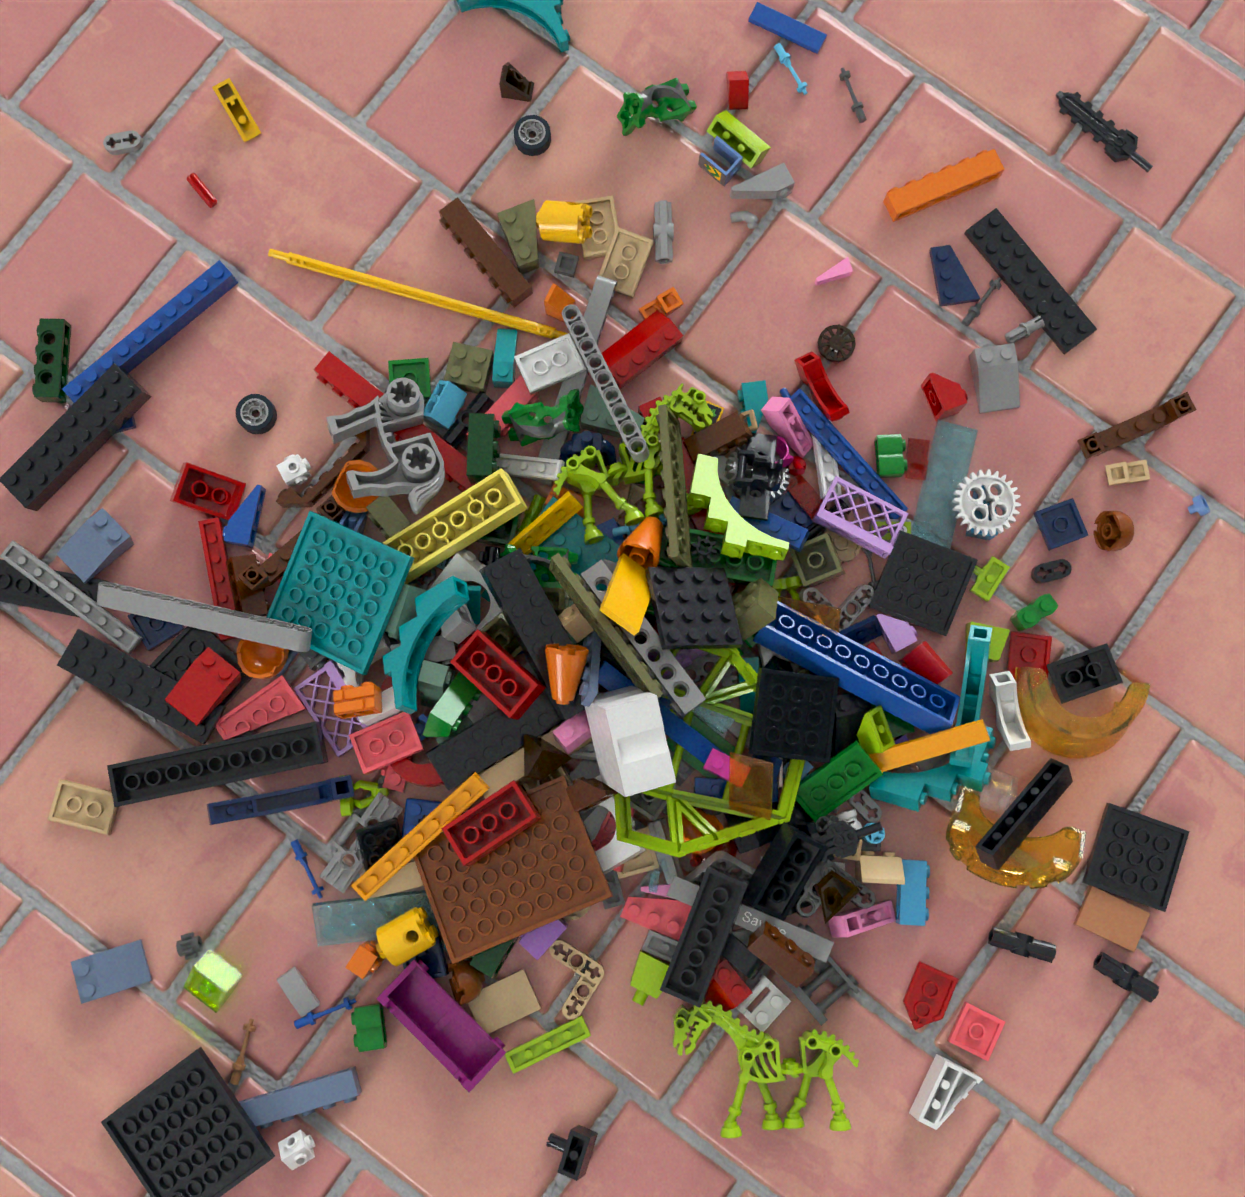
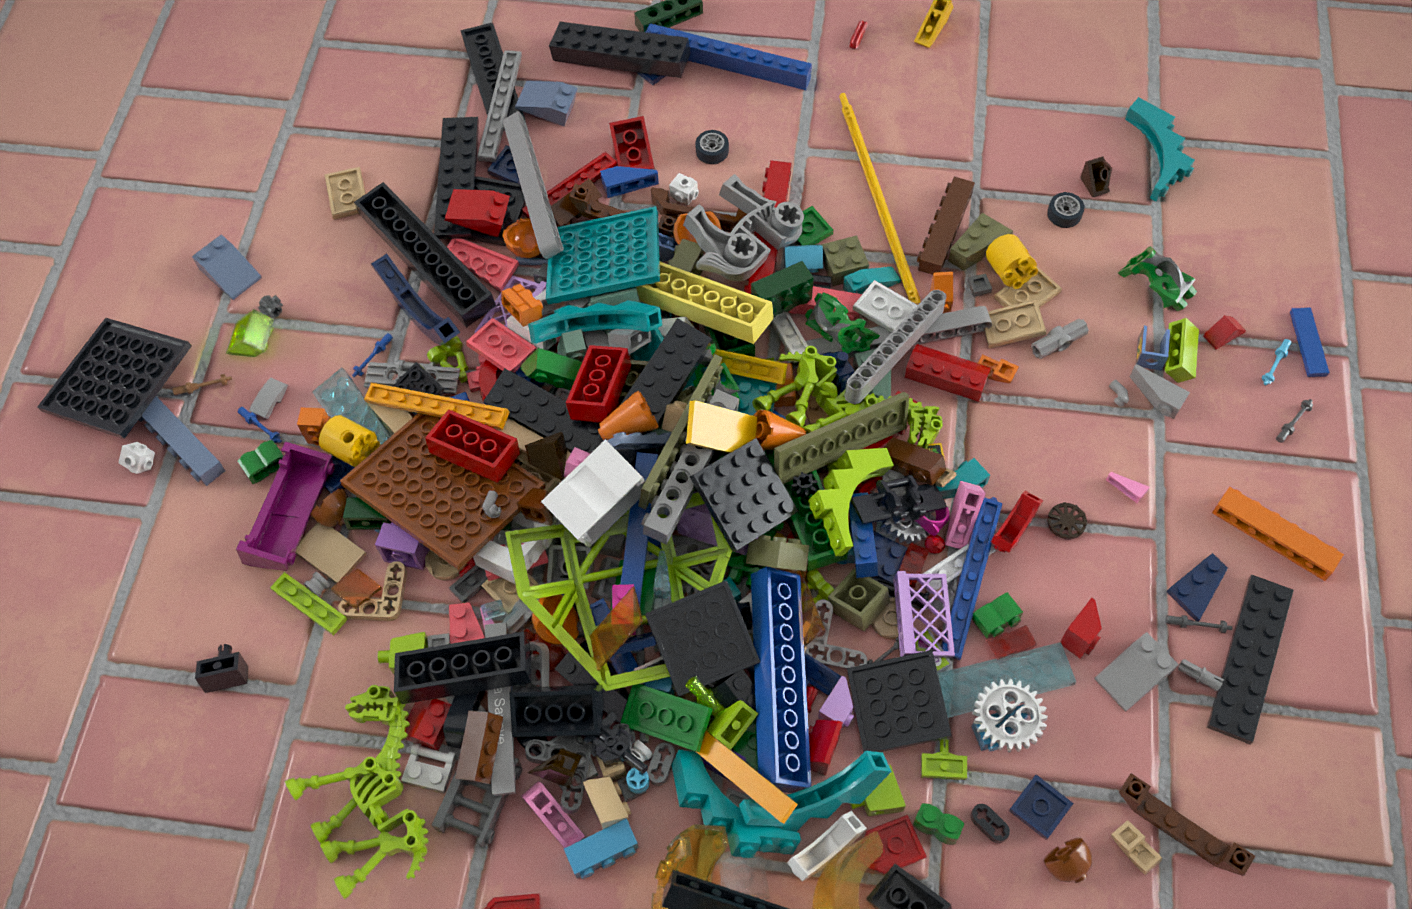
camera: 65 degrees right, 20 degrees down
(533, 1028) = (317, 584): none -> light grey wheel
(557, 994) = (356, 588): none -> clear orange piece
(565, 838) = (489, 505): none -> light grey arm
(842, 741) = (704, 696): none -> clear neon green pin

